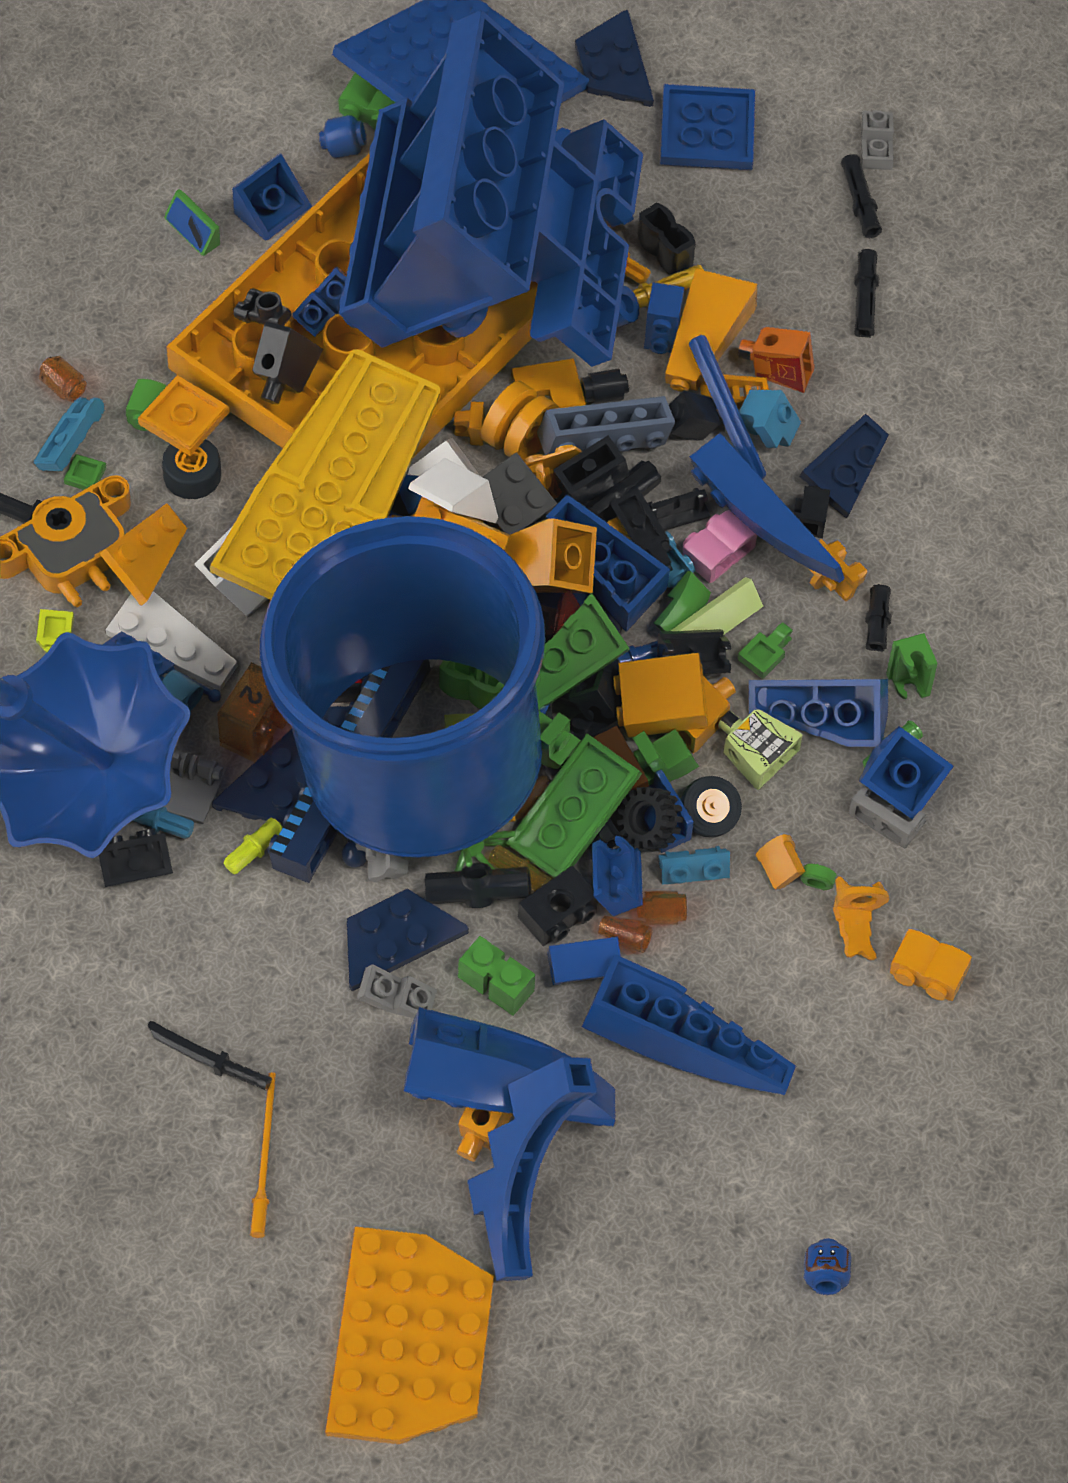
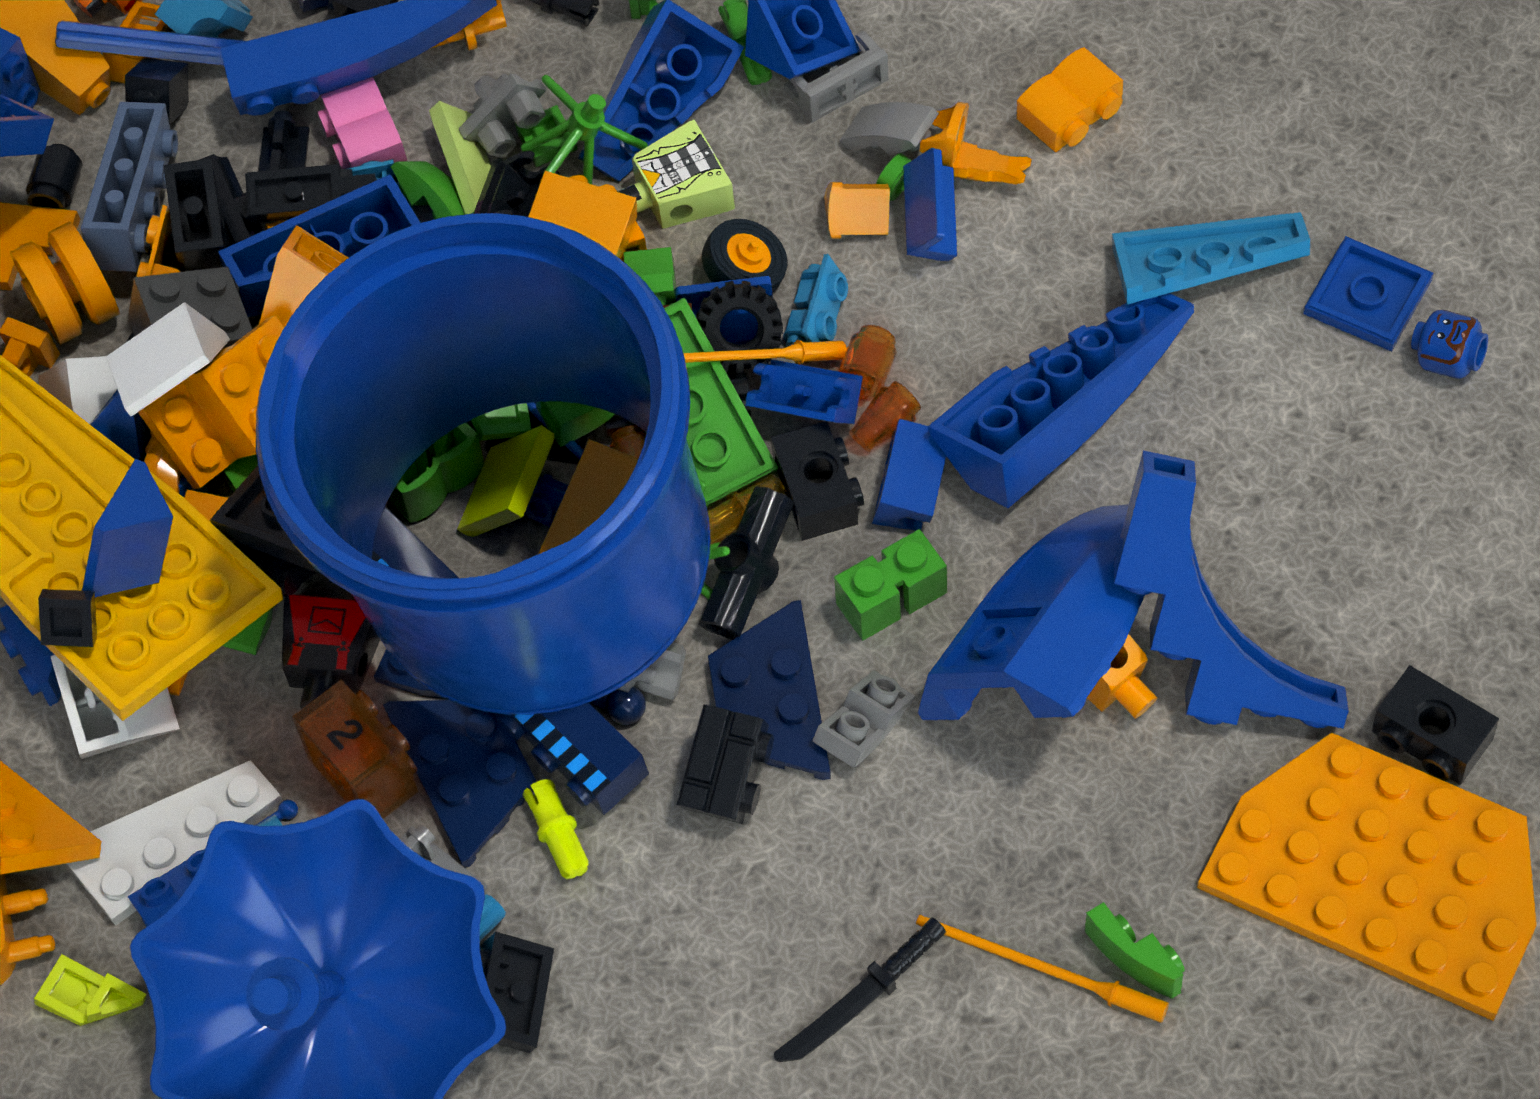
camera: 60 degrees left, 0 degrees up
(255, 510) = (67, 618): none -> black tile
(286, 1210) = (1144, 961): none -> bright green slope
(313, 515) = (129, 536): none -> blue slope
(327, 921) = (725, 764): none -> black brick
(524, 1316) = (1423, 701): none -> black brick
(647, 861) = (798, 352): none -> light orange piece
(759, 619) = (499, 108): none -> light grey hips
(762, 669) = (583, 125): none -> bright green plant
(796, 905) = (930, 207): none -> blue panel
(834, 1083) = (1195, 254): none -> dark azure wing
(852, 858) = (891, 126): none -> light grey slope
(854, 1206) = (1368, 293): none -> blue tile

